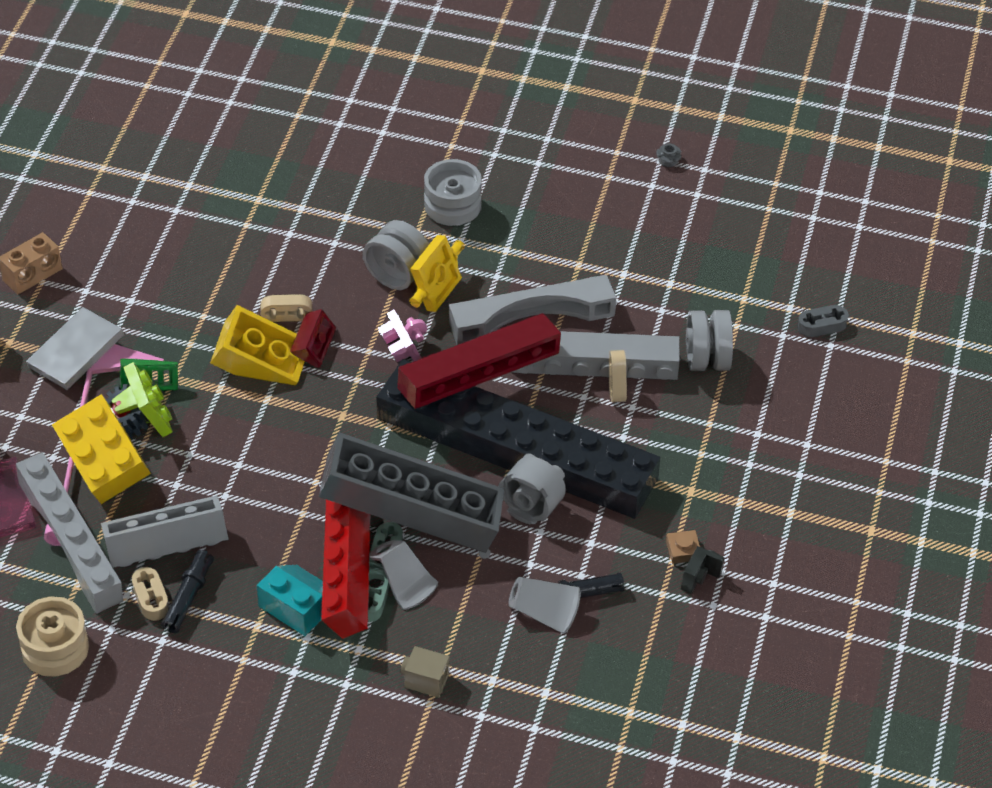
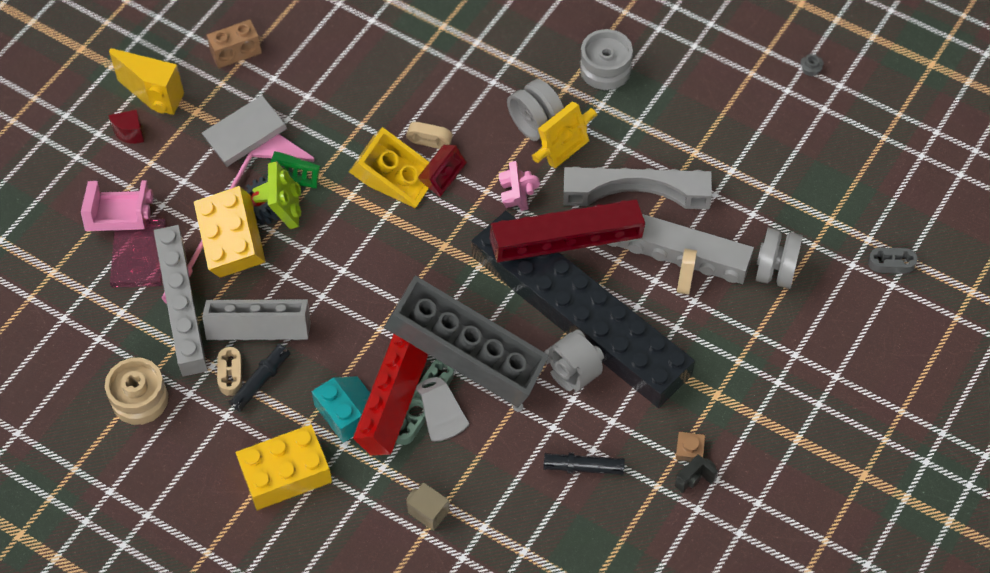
camera: 20 degrees right, 10 degrees up
(251, 672) = (284, 467): none -> yellow brick
(546, 602) = (551, 470): light grey piece -> none

